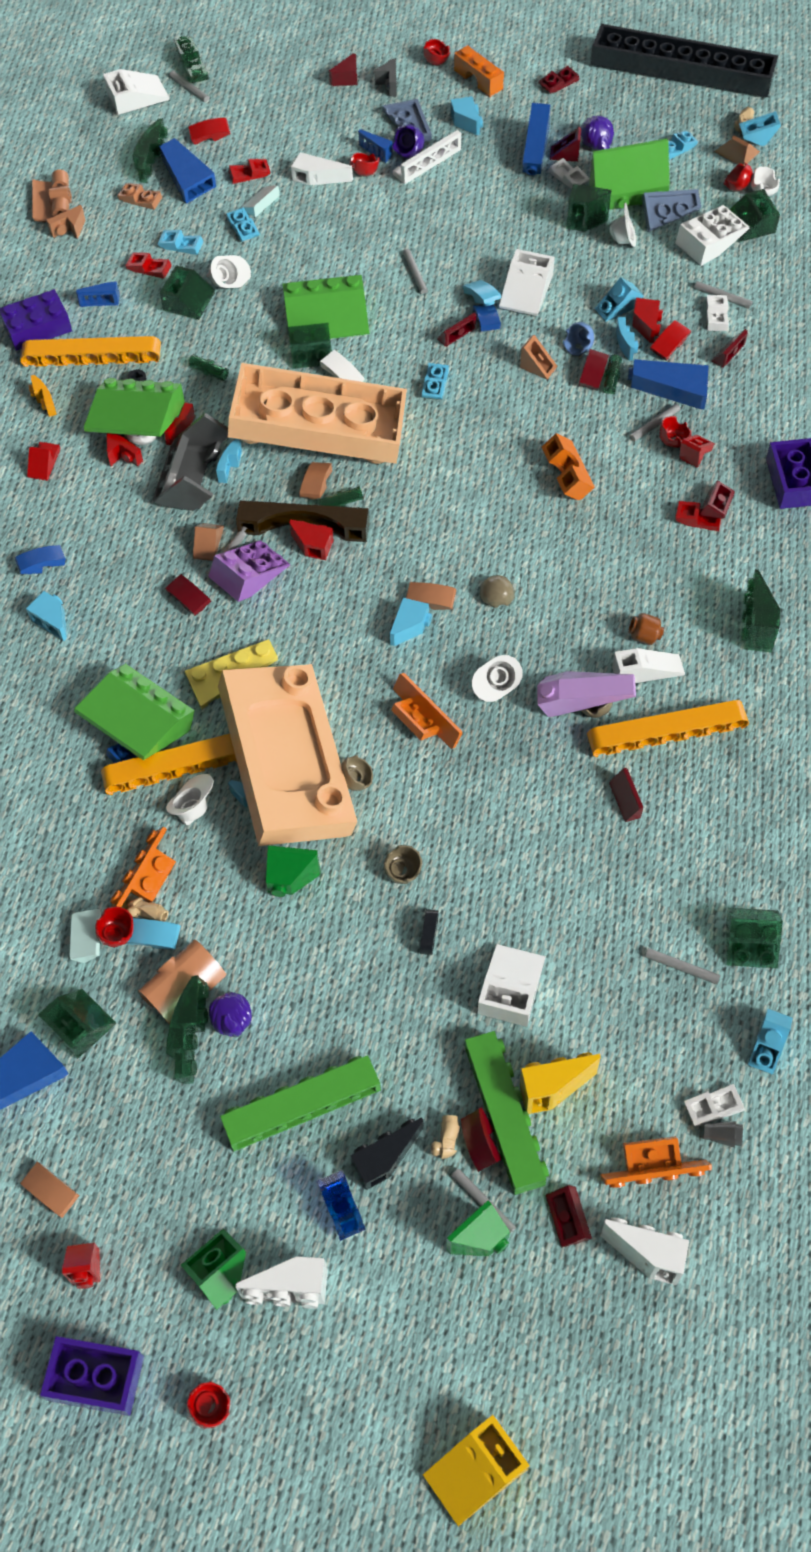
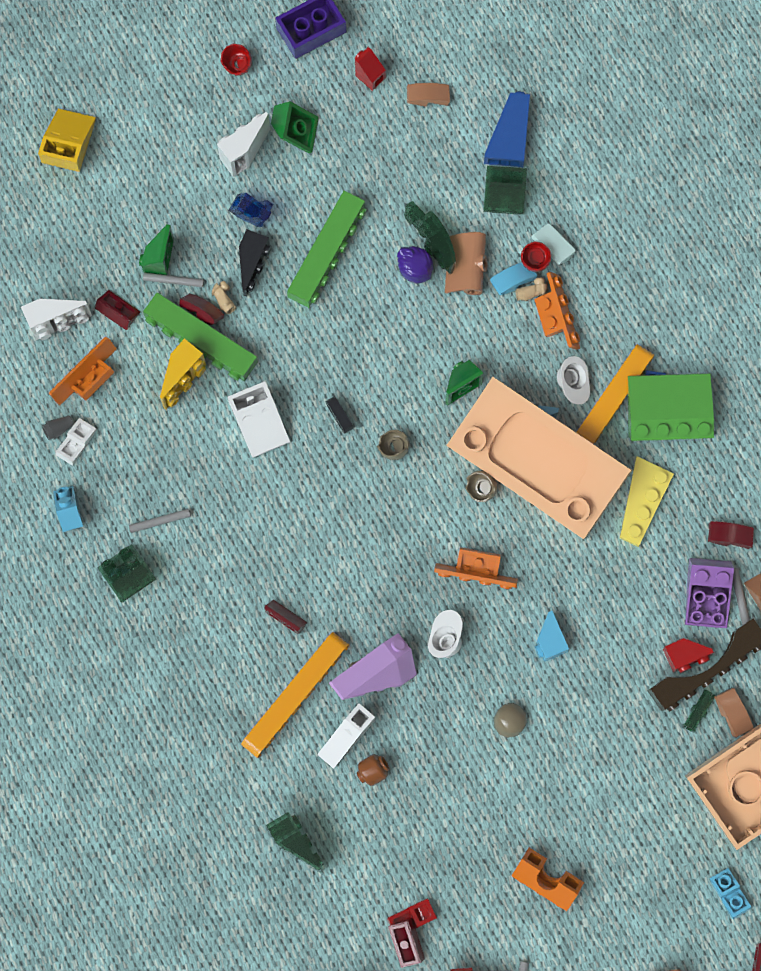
camera: 140 degrees right, 15 degrees up
(436, 595) = (554, 674): nougat slope -> none

